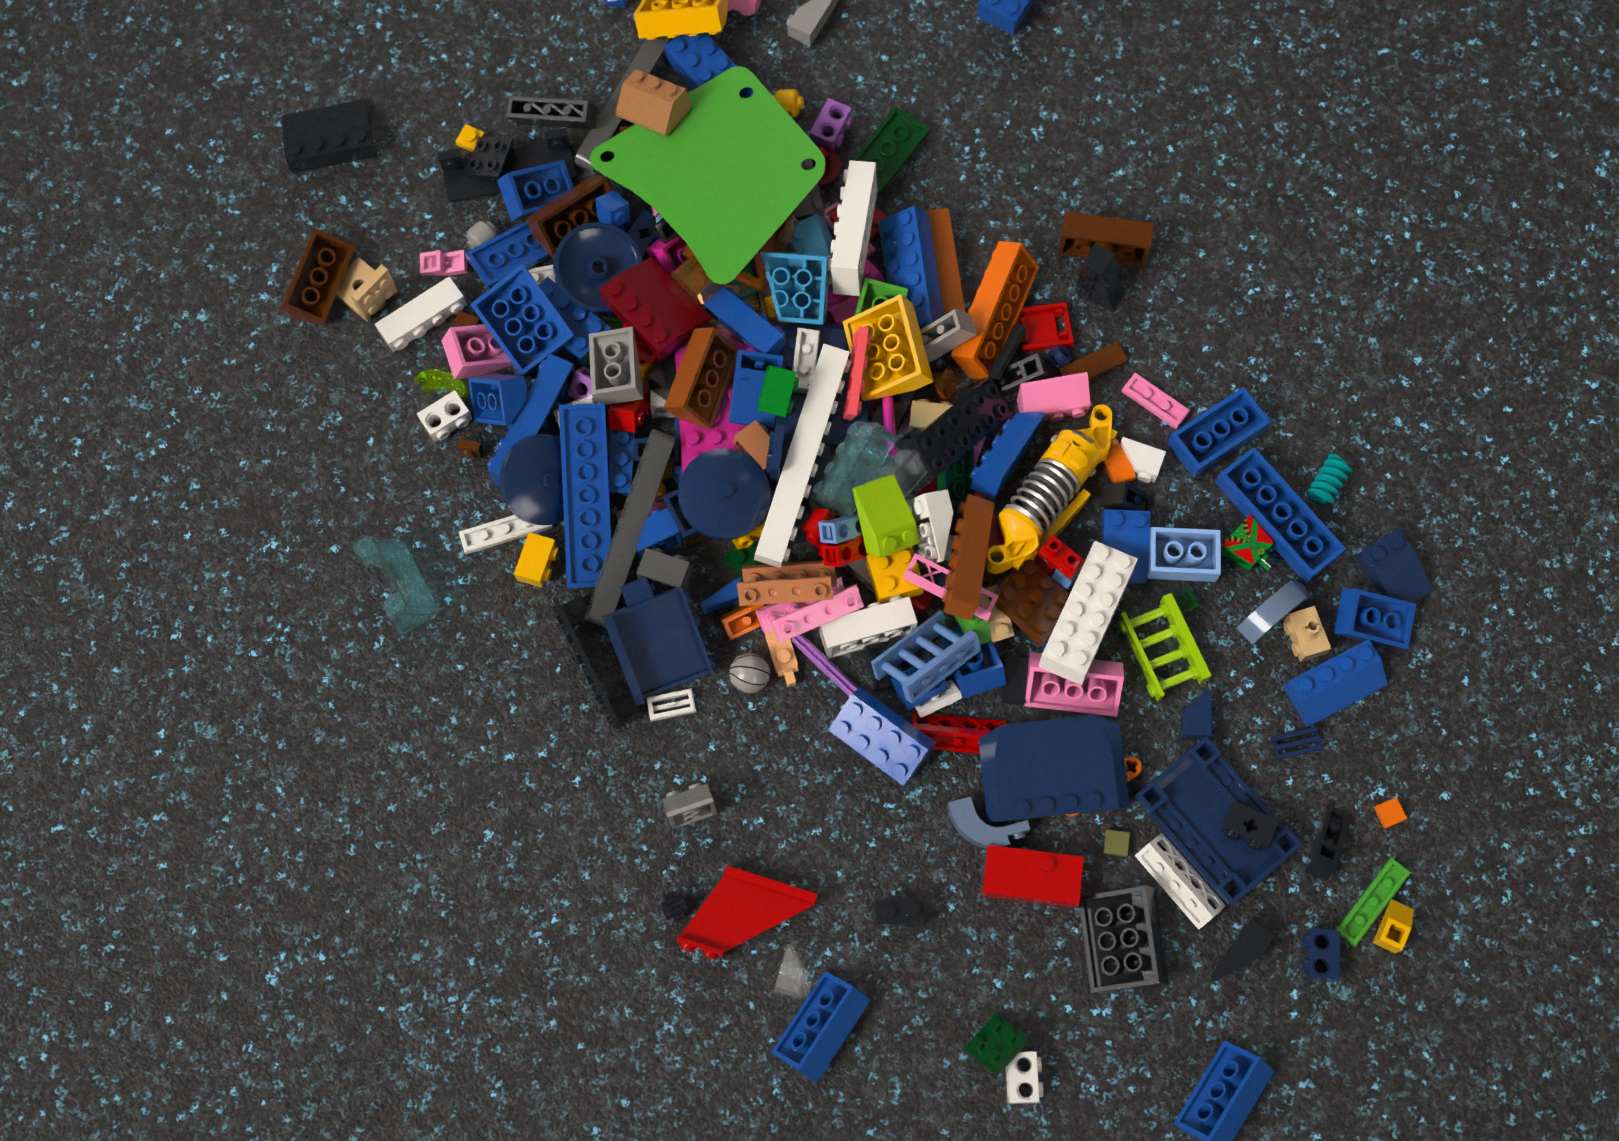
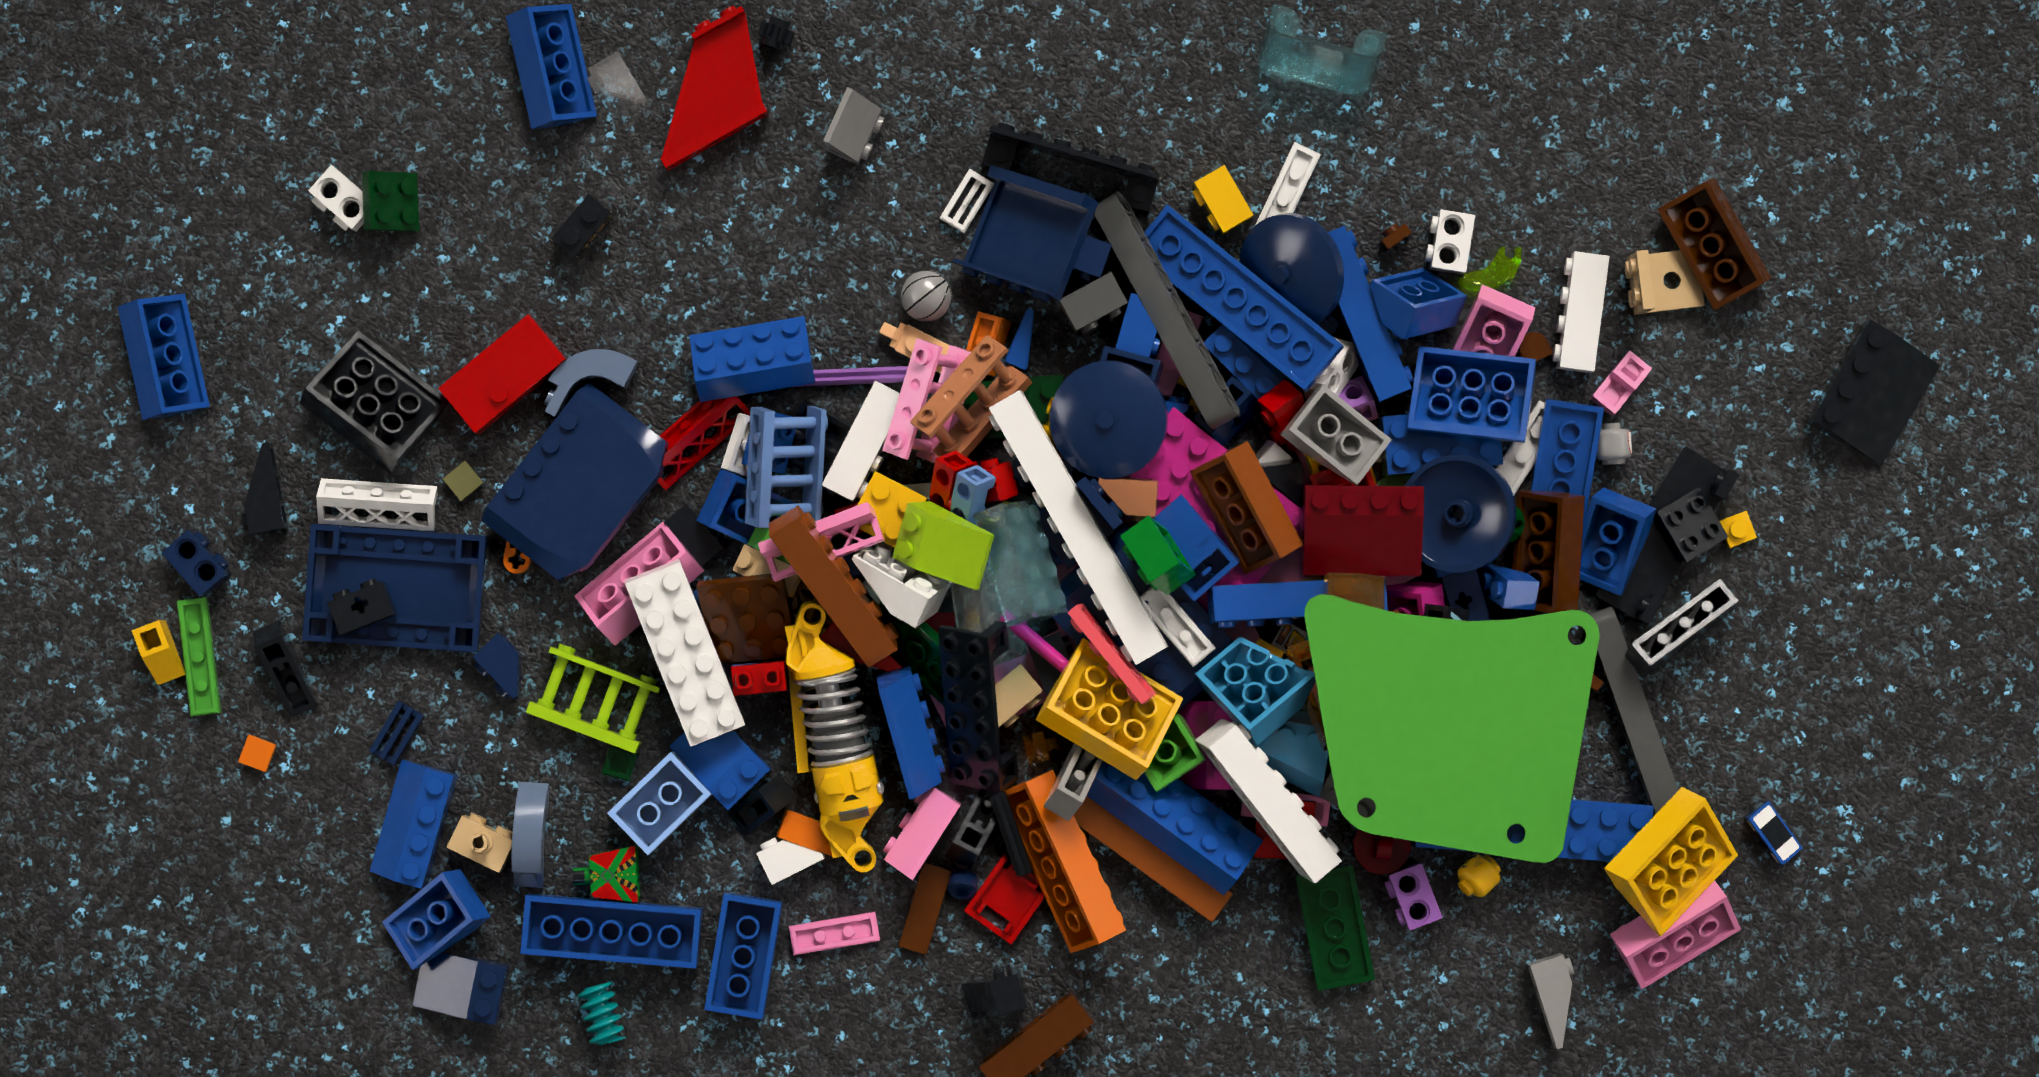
camera: 130 degrees right, 15 degrees up
(652, 102) = (1591, 730): medium nougat slope -> none

